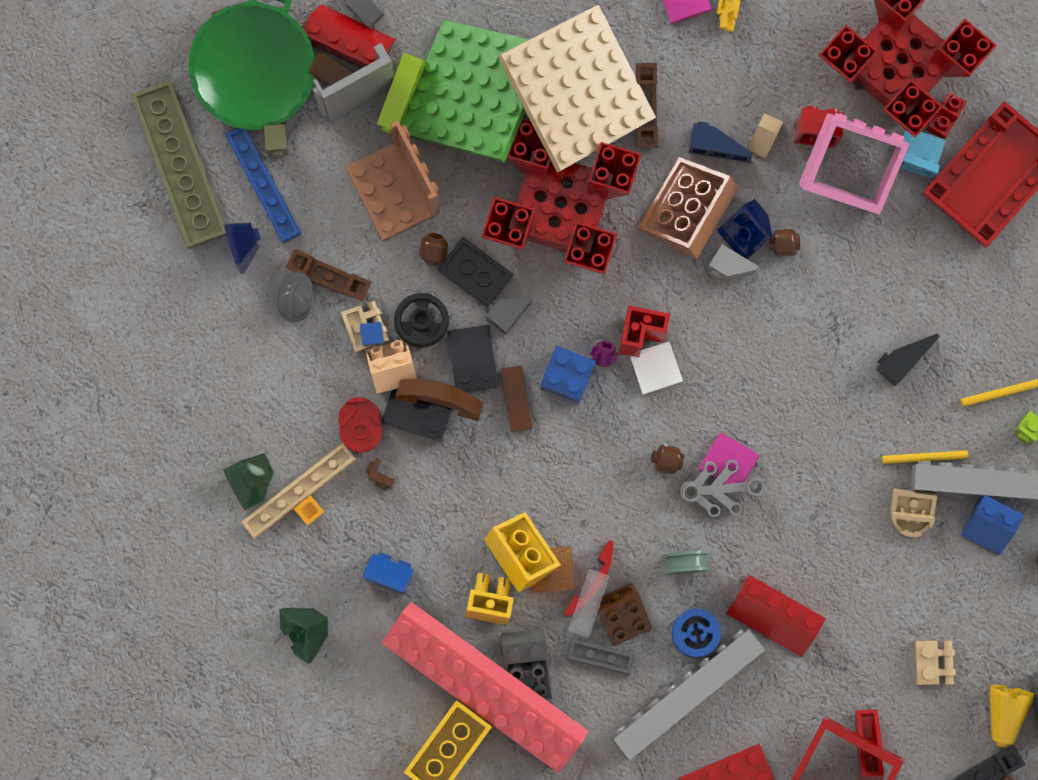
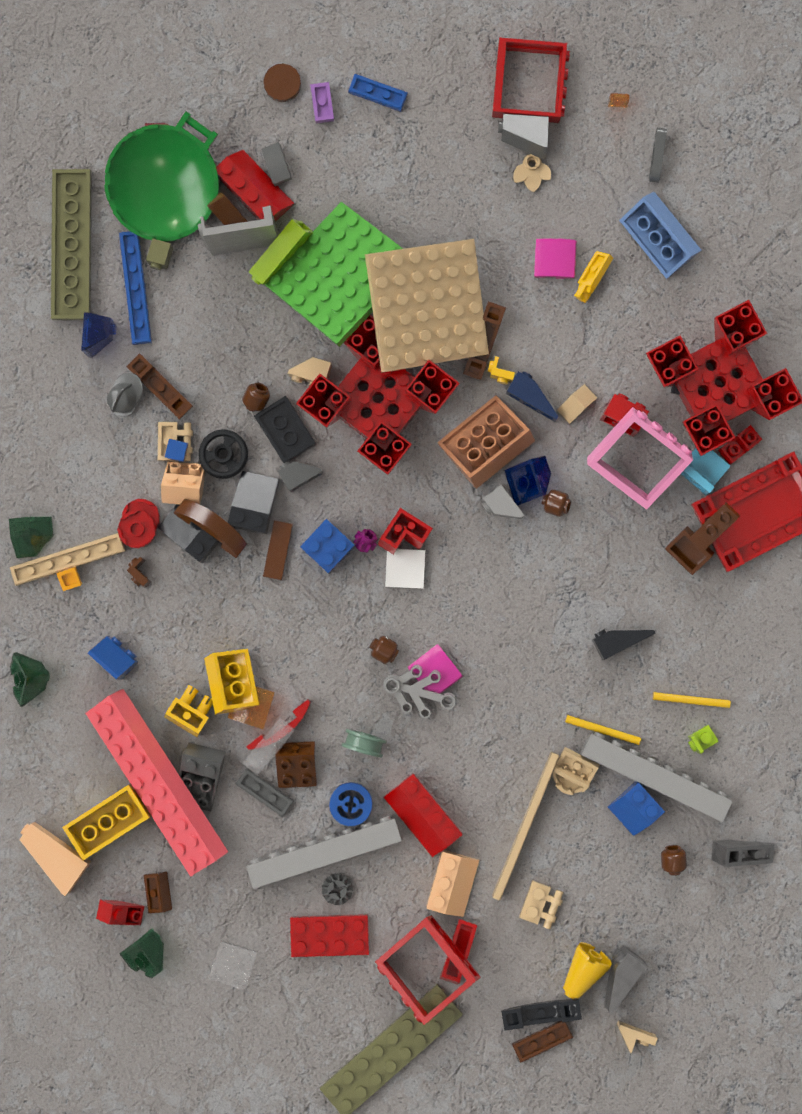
camera: 30 degrees right, 5 degrees up
(395, 186) = (242, 331): nougat bracket -> none
(478, 202) = (310, 370): none -> tan slope
(676, 134) = (501, 375): none -> yellow bracket
(716, 718) = (345, 893): none -> dark grey gear
(833, 675) = (452, 883): none -> light nougat slope
(885, 592) = (525, 826): none -> tan tile
(941, 236) = (693, 548): none -> reddish brown plate

